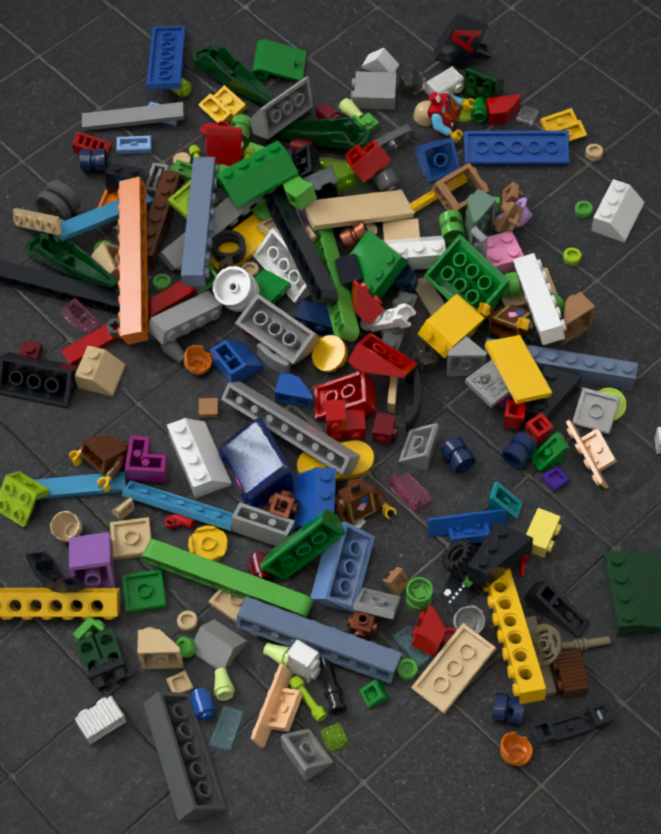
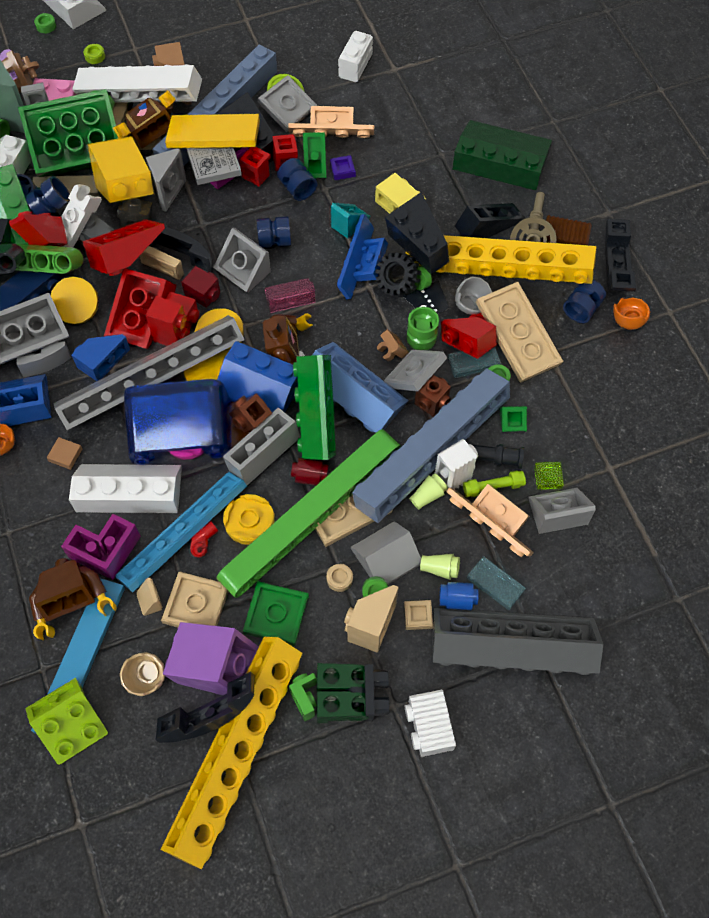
camera: 70 degrees left, 5 degrees up
(394, 292) = (50, 196): none -> dark blue wheel

